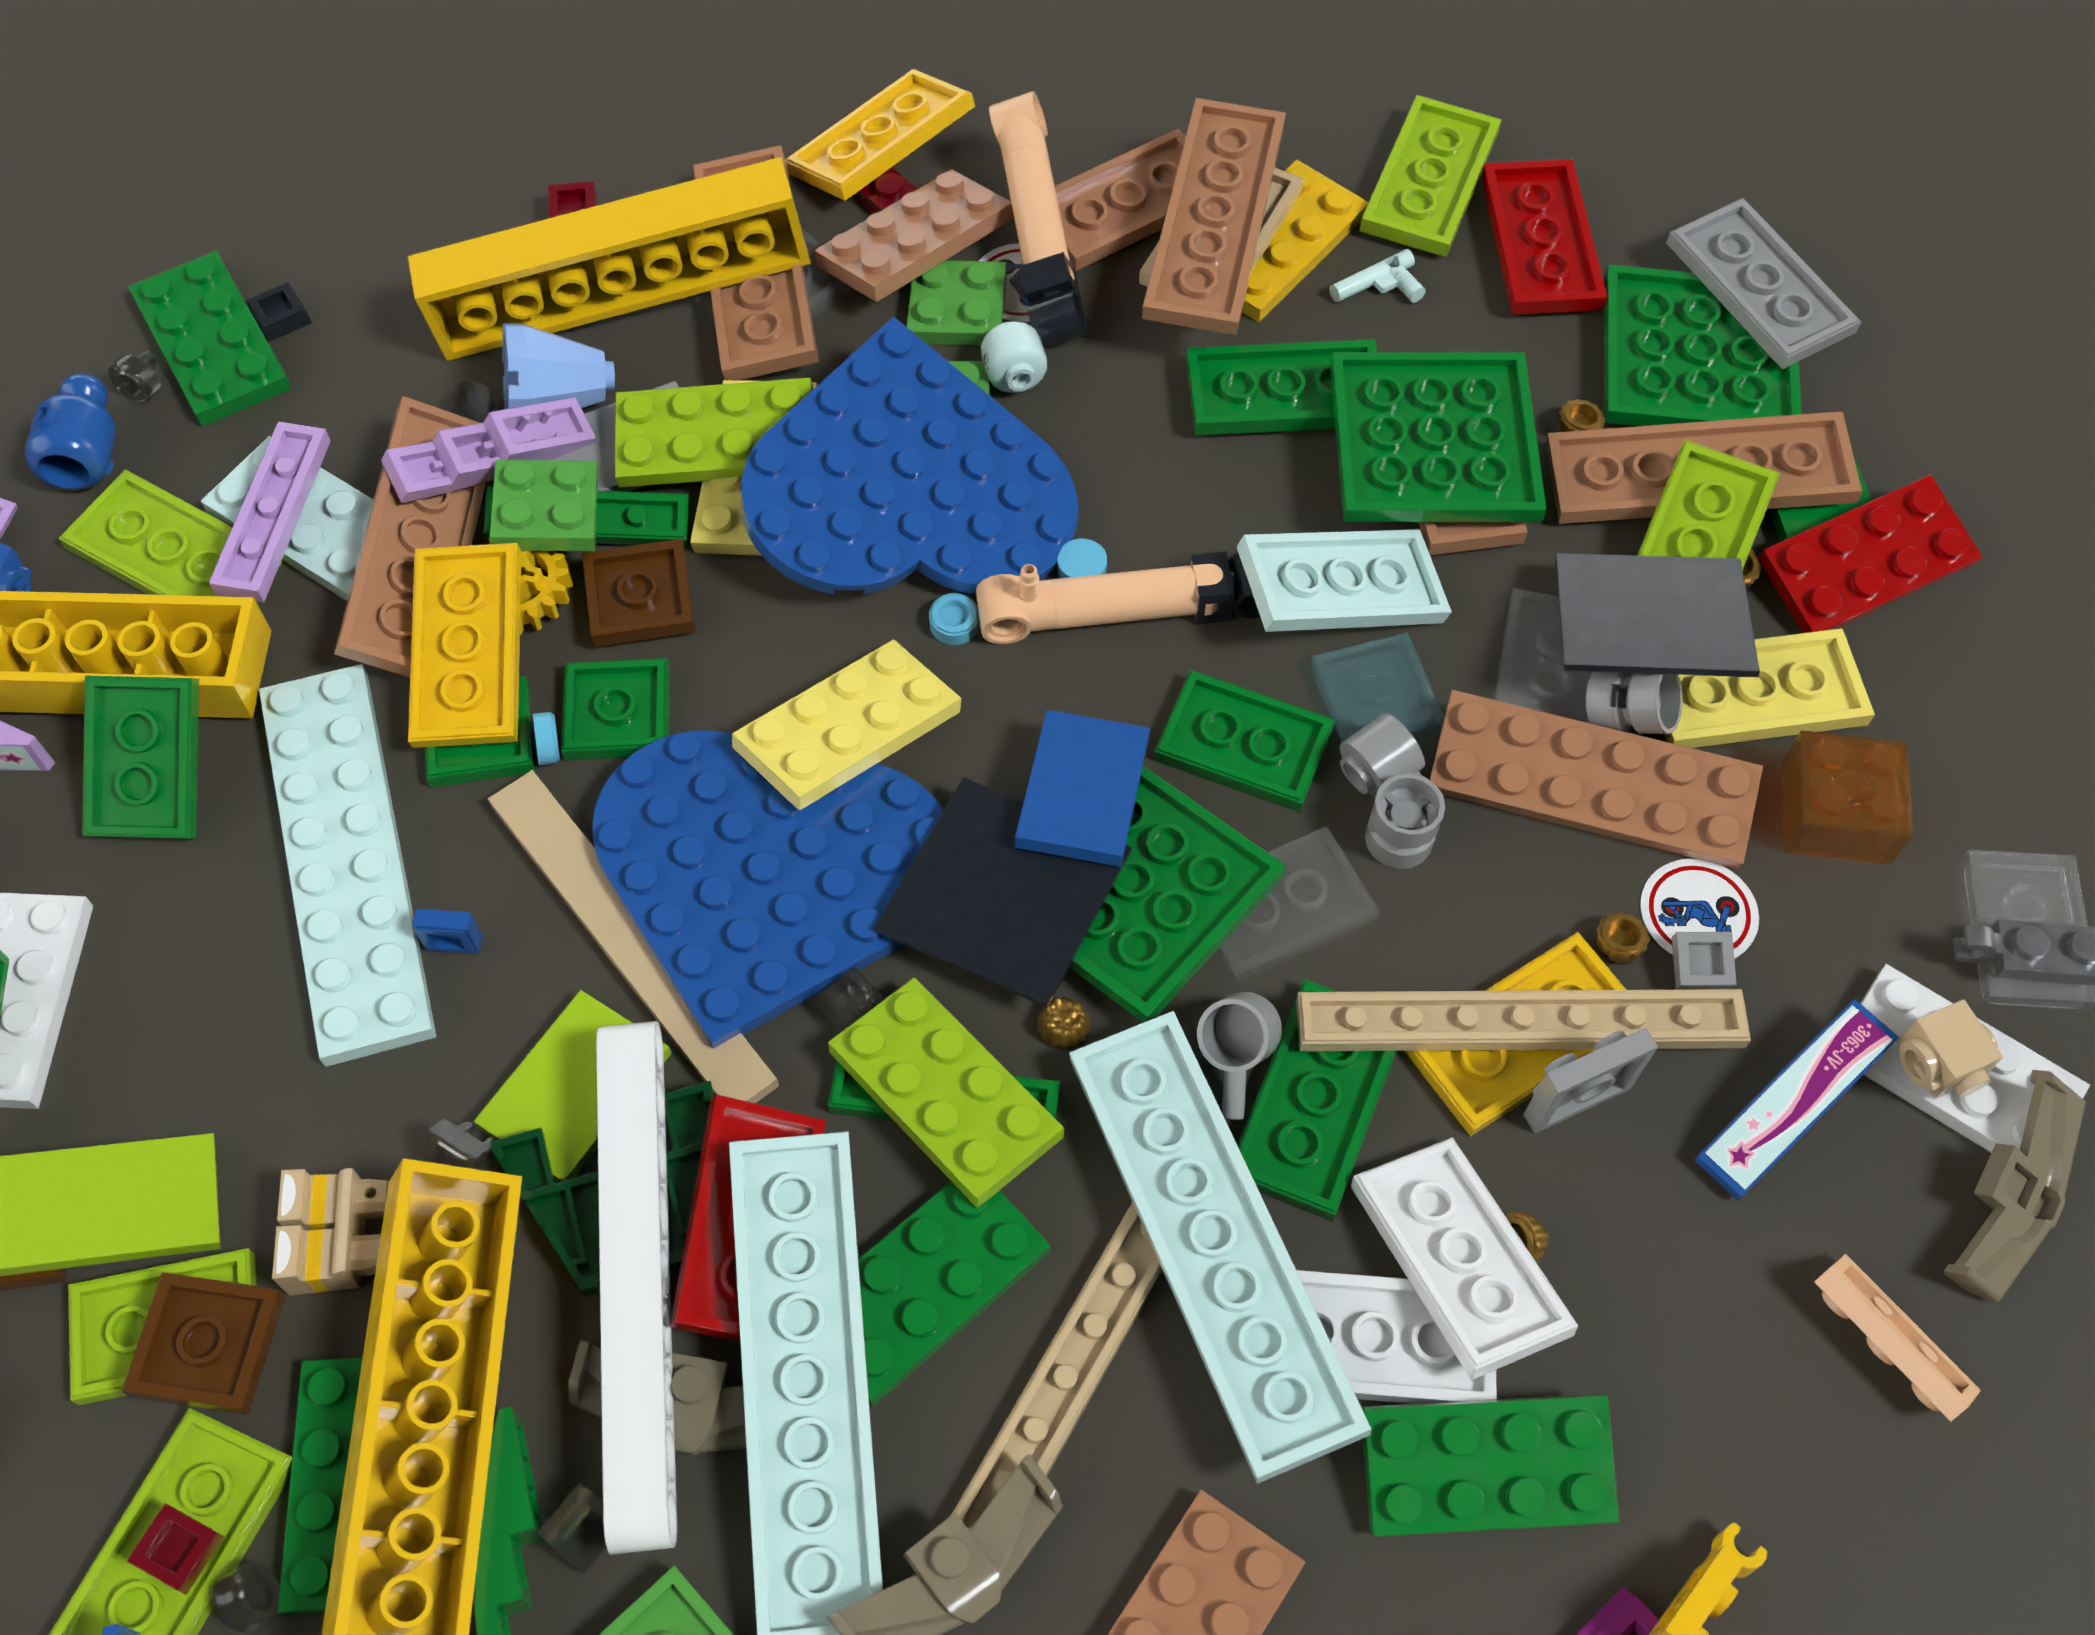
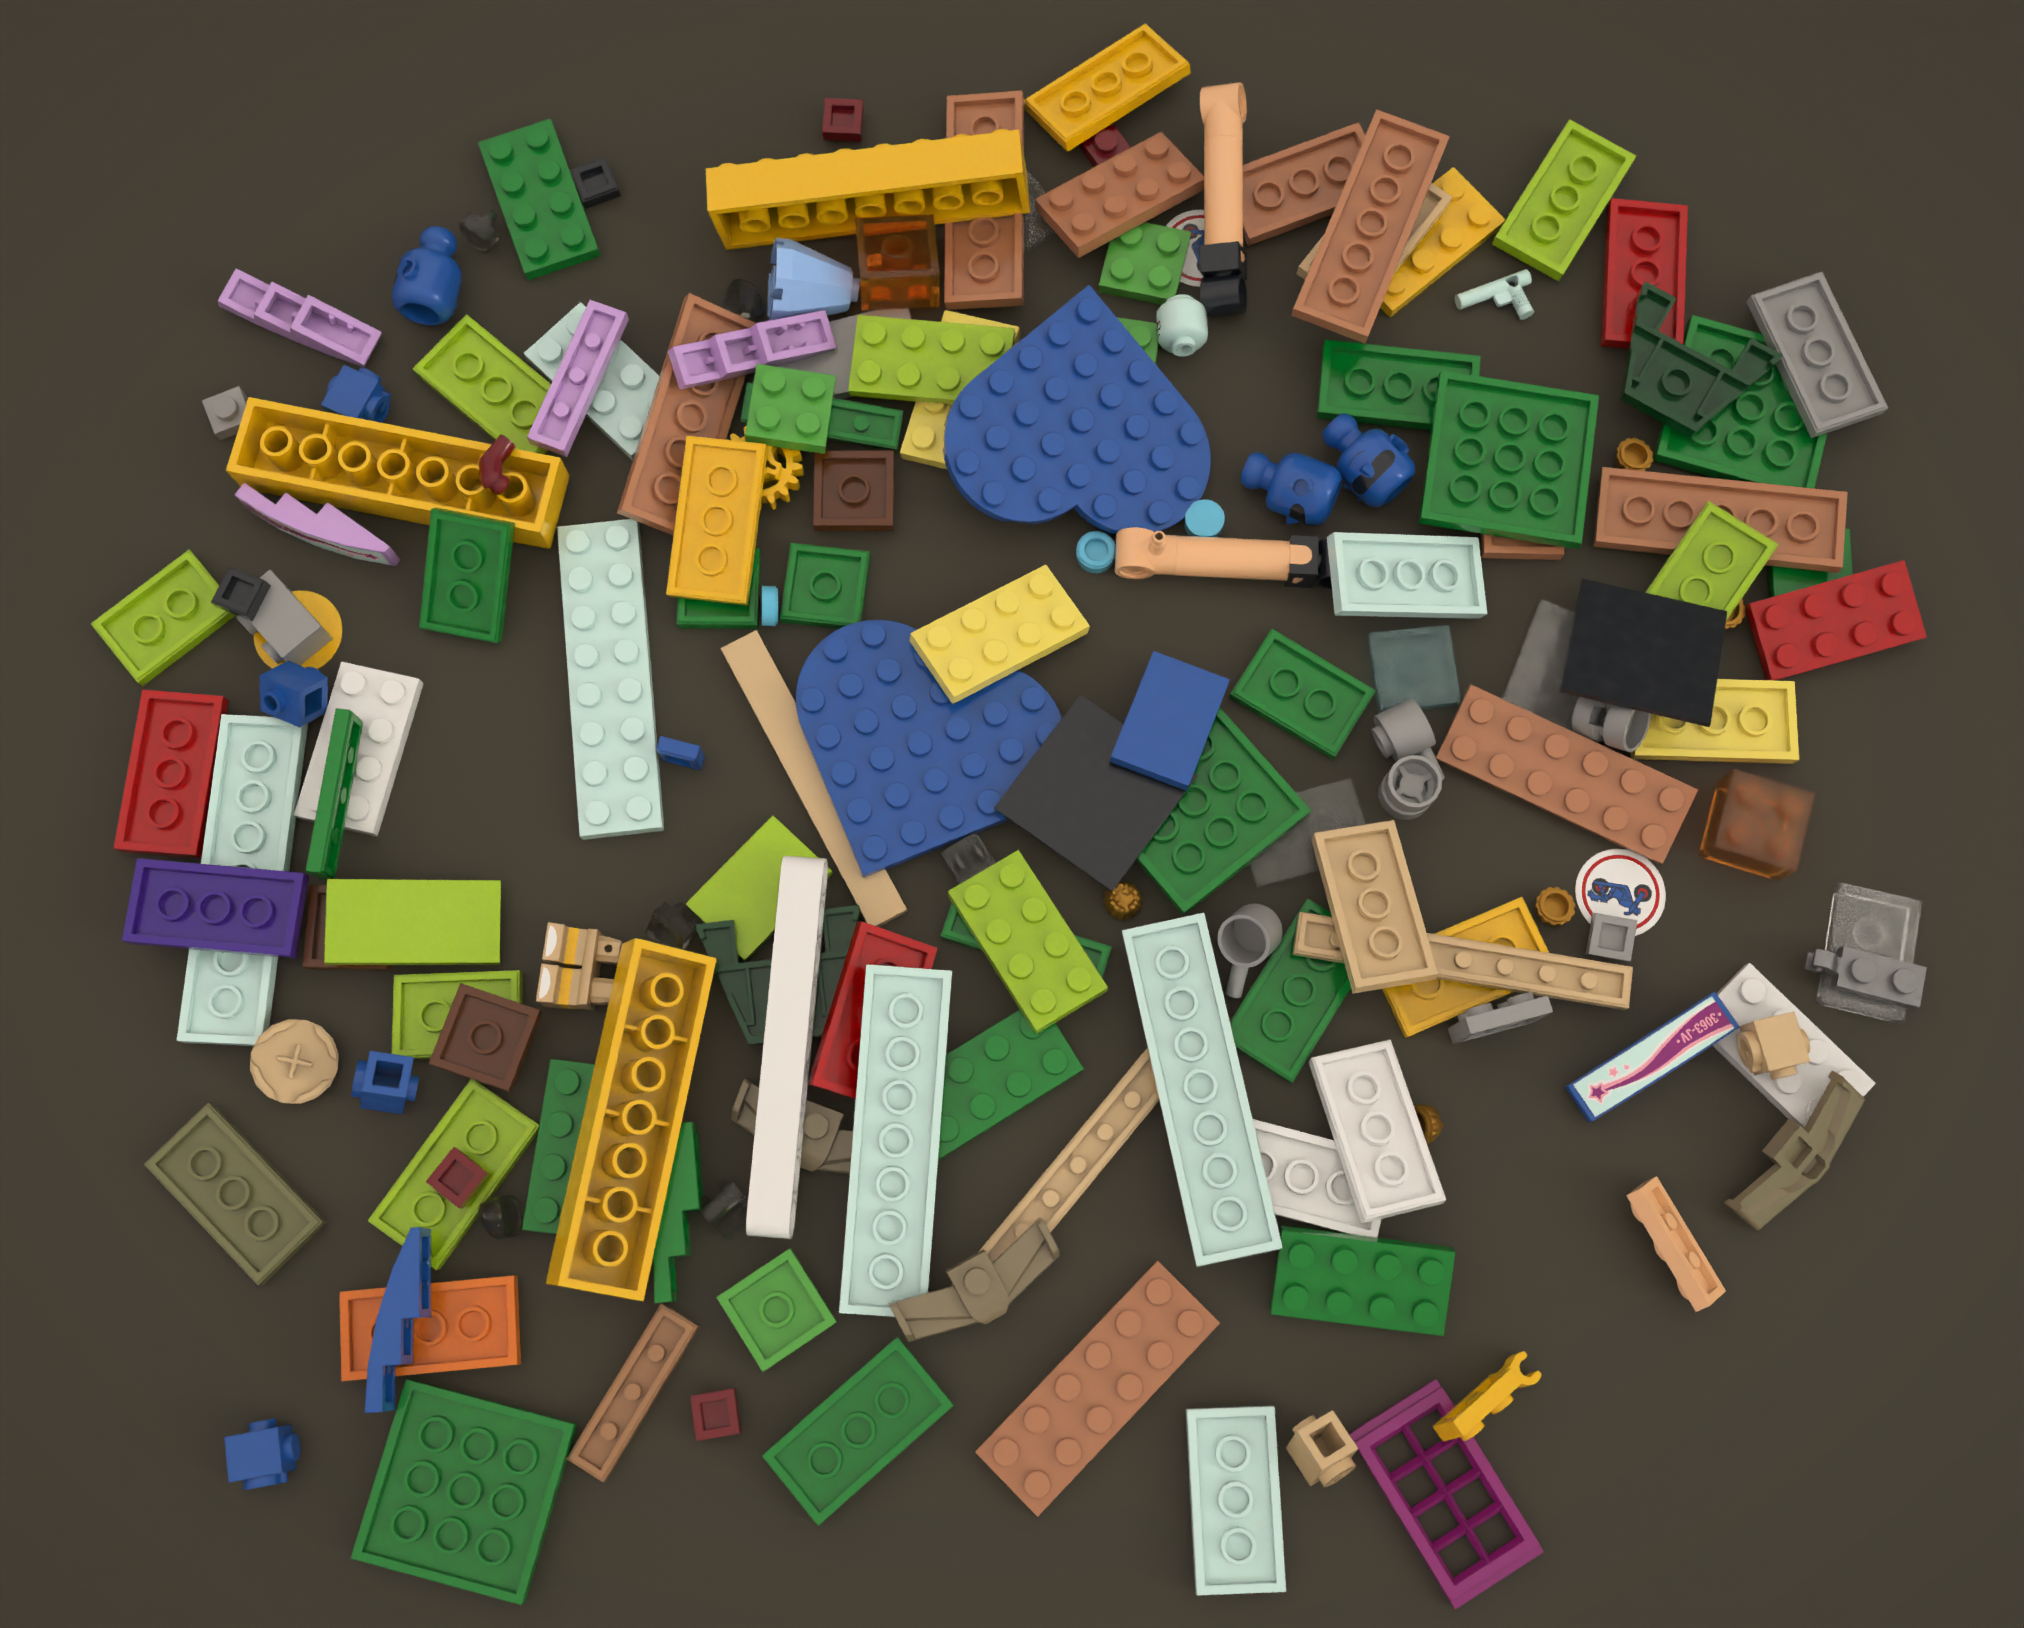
camera: 10 degrees right, 15 degrees up
(60, 1431) = (385, 1082): none -> blue brick
(163, 611) = (491, 465): none -> dark red arm
(658, 334) = (897, 262): none -> clear orange brick
(1187, 505) = (1296, 486): none -> blue piece
(1270, 466) = (1370, 462): none -> blue piece
(1394, 967) = (1374, 906): none -> tan plate
(1612, 328) = (1676, 381): none -> dark green wing

